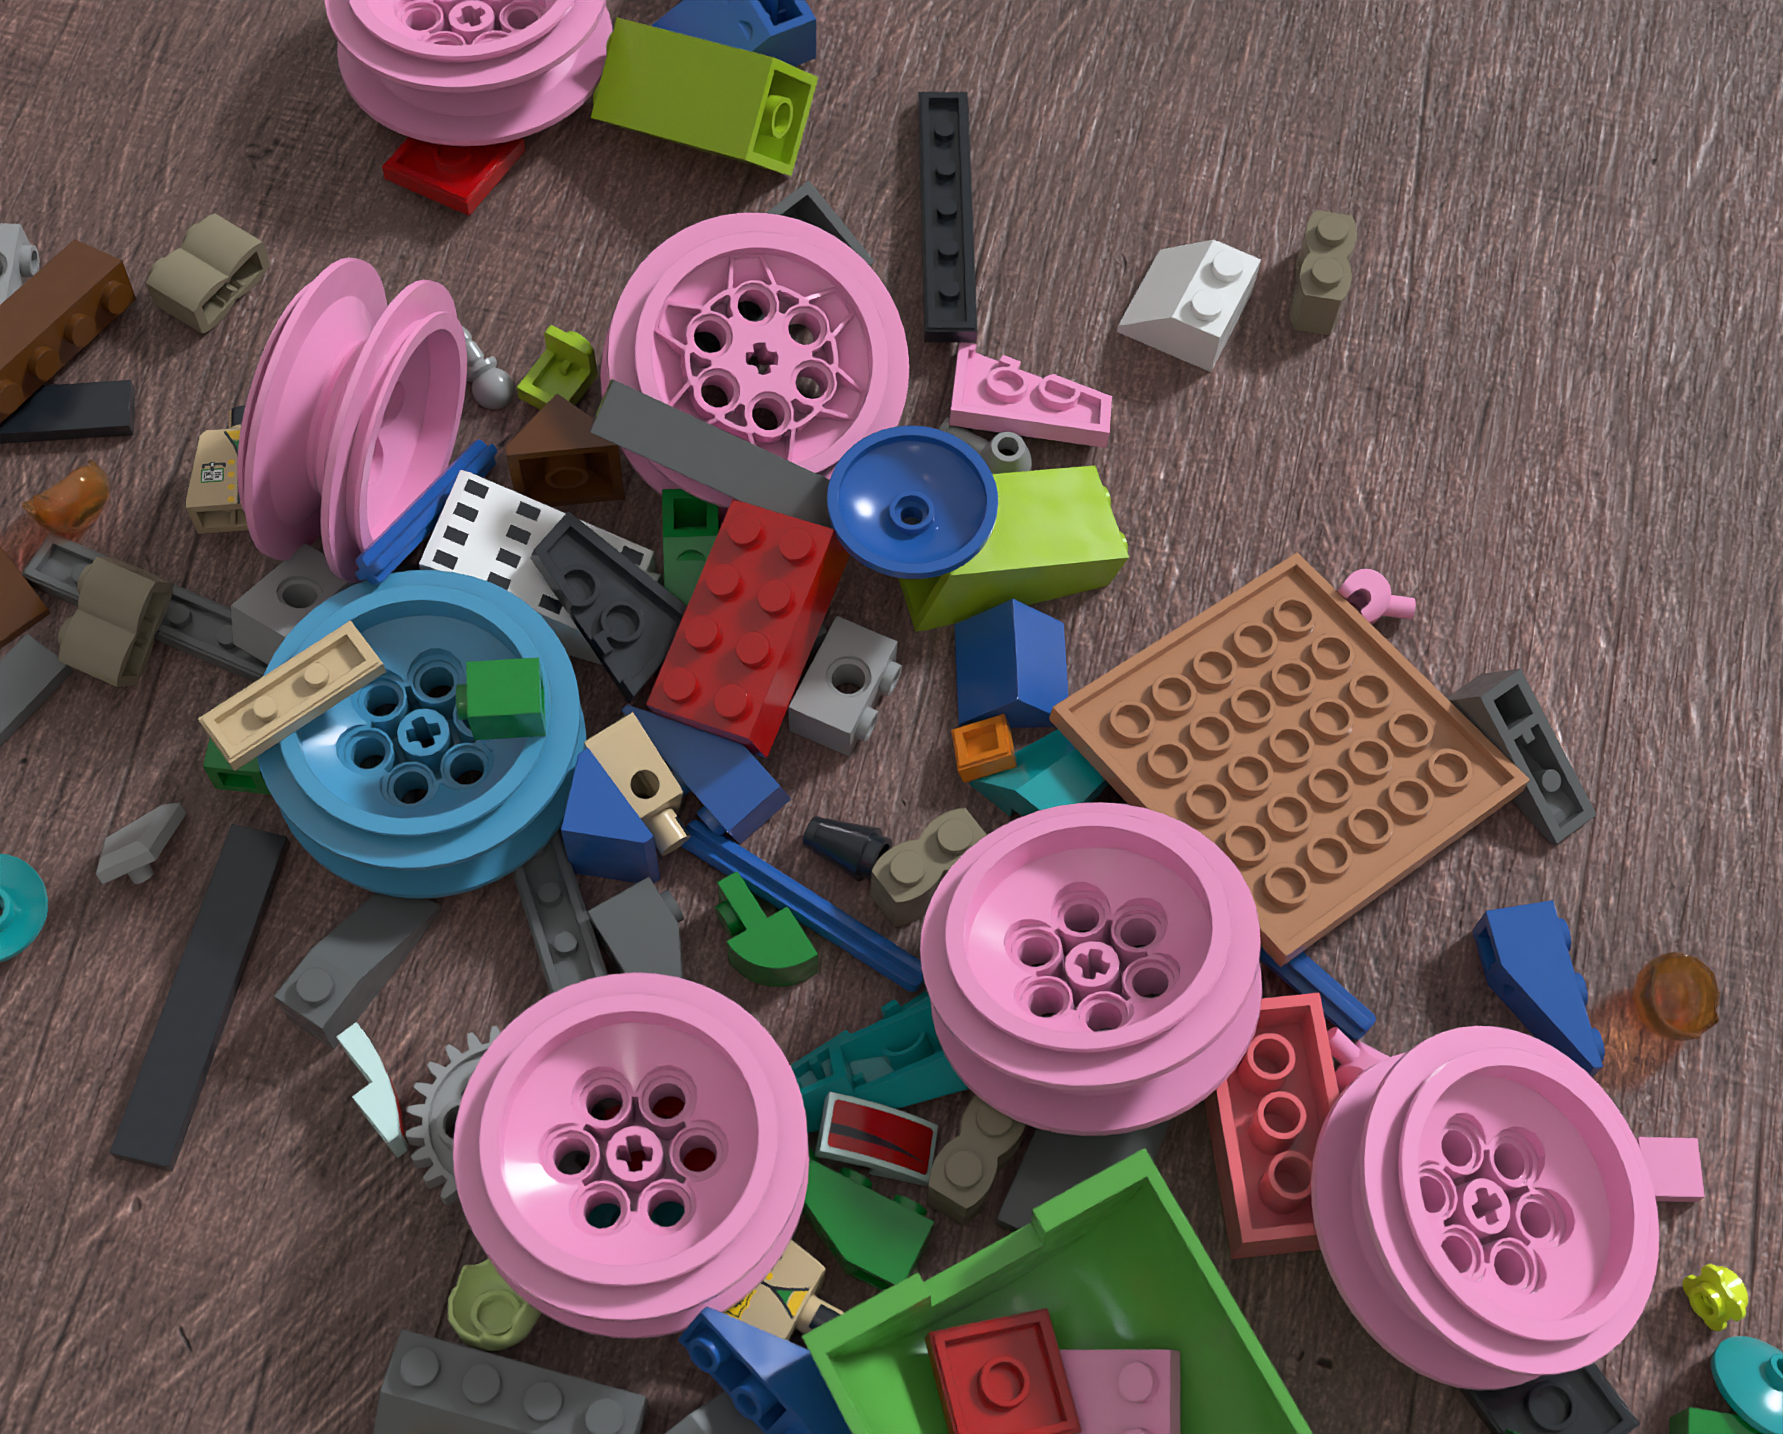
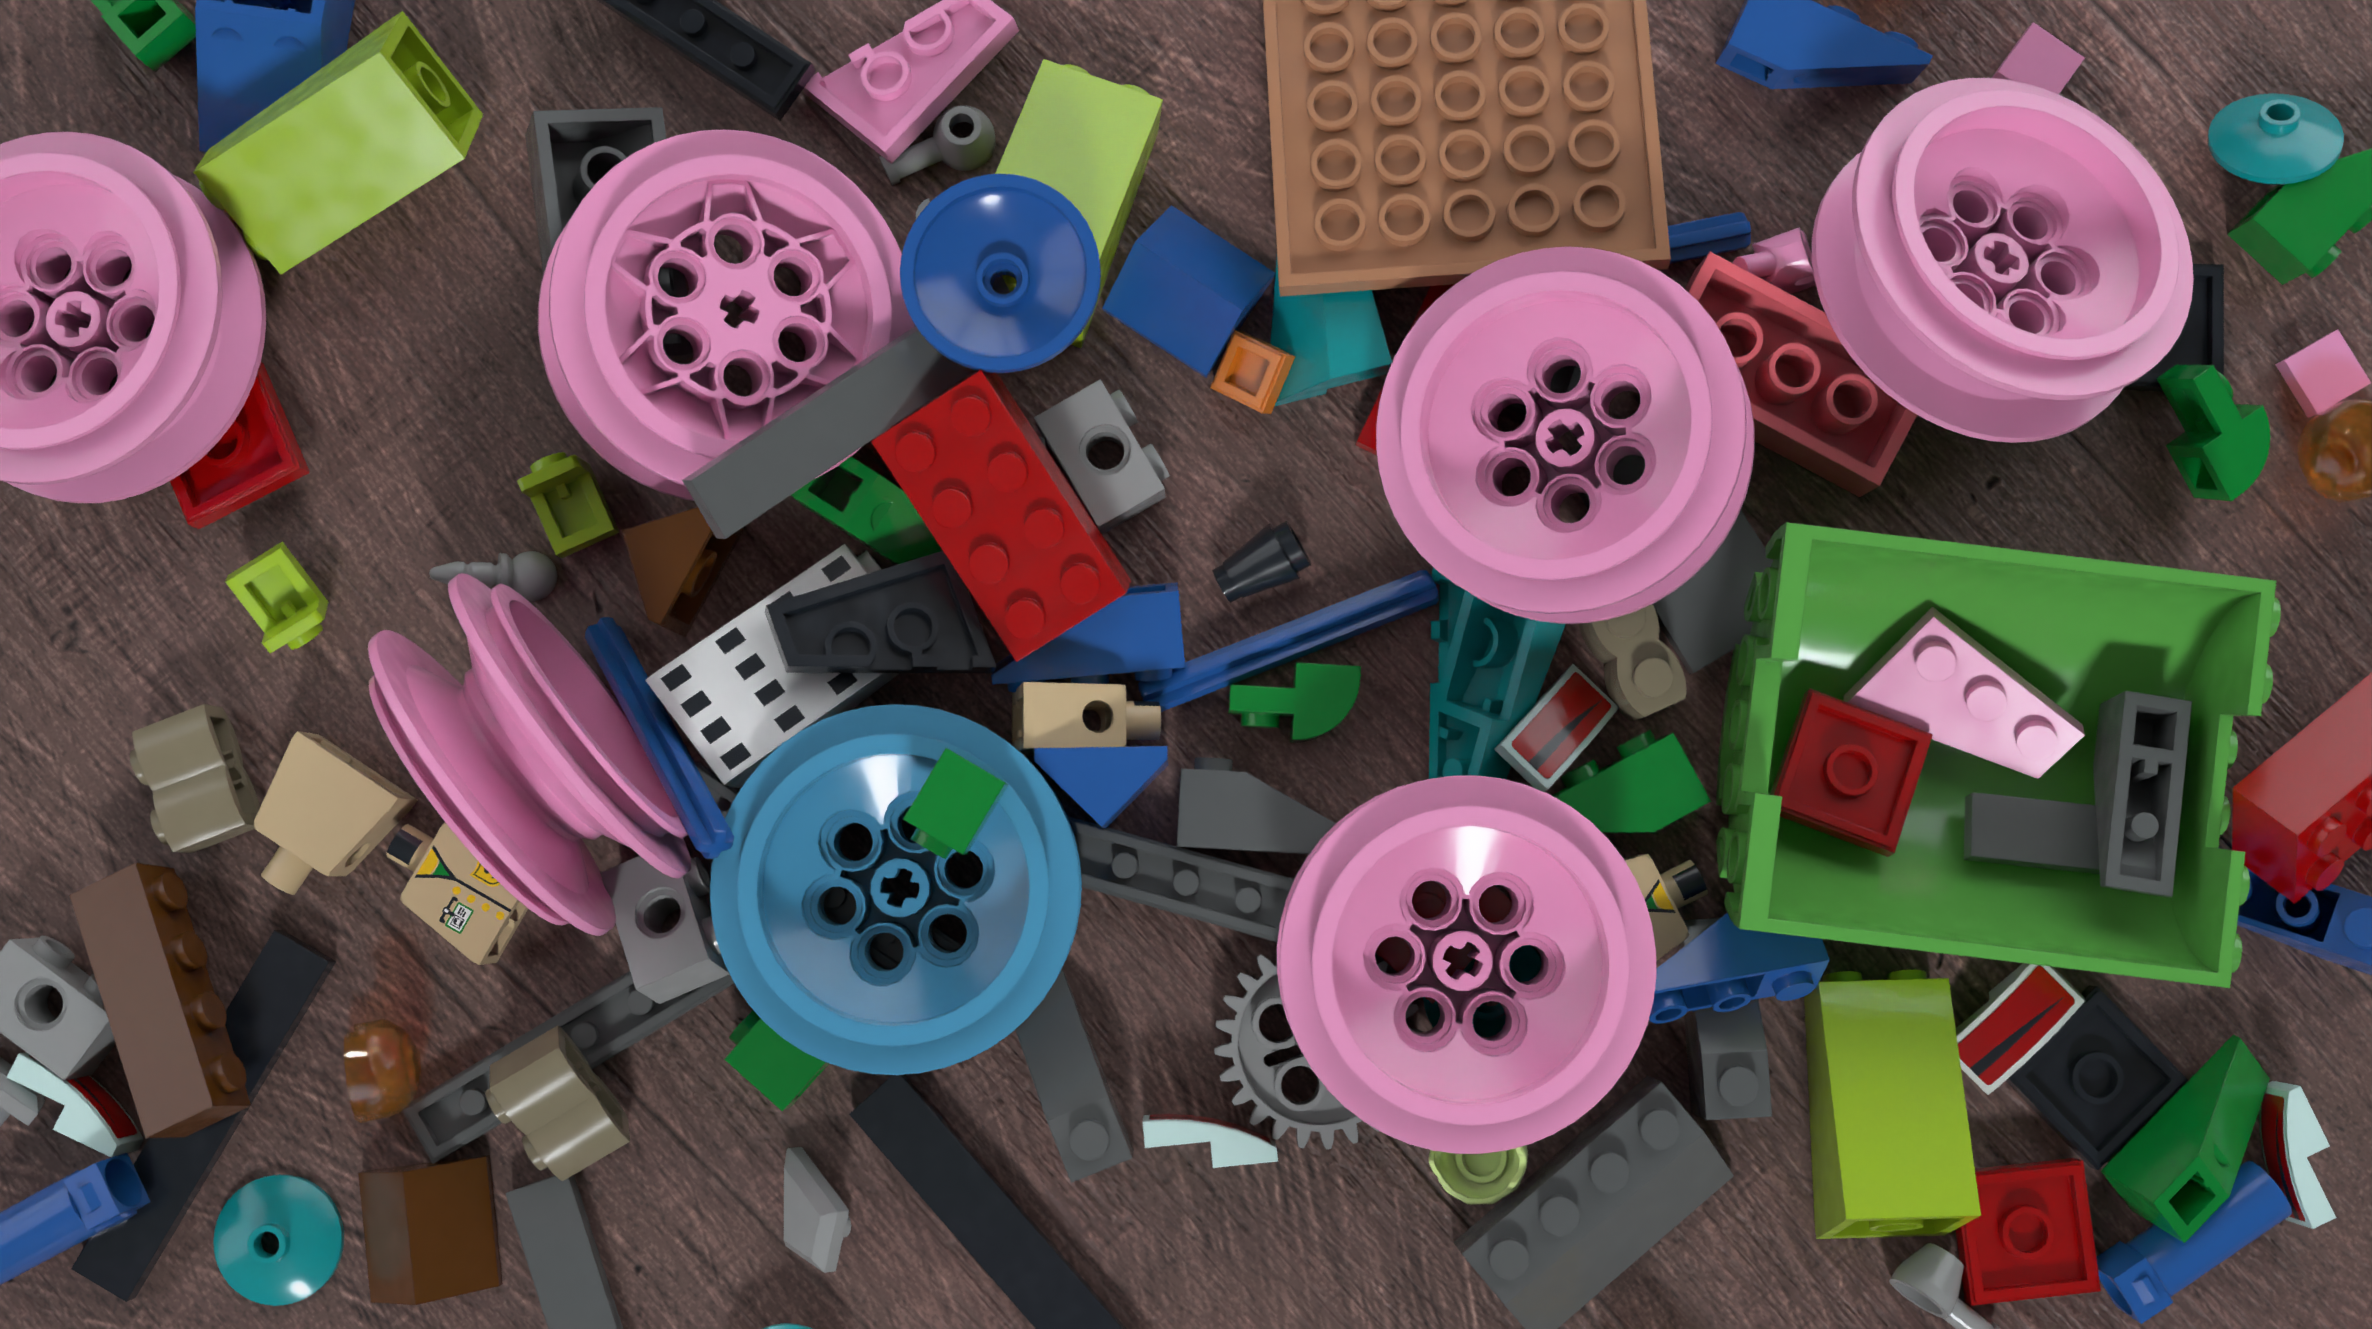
camera: 50 degrees left, 20 degrees up
(223, 354) = (325, 812): none -> tan torso
(292, 695) = (805, 998): tan tile -> none
(372, 239) = (280, 598): none -> lime bracket
(912, 870) = (1335, 486): dark tan brick -> none
(1716, 1296) = (2171, 116): neon yellow plate -> none

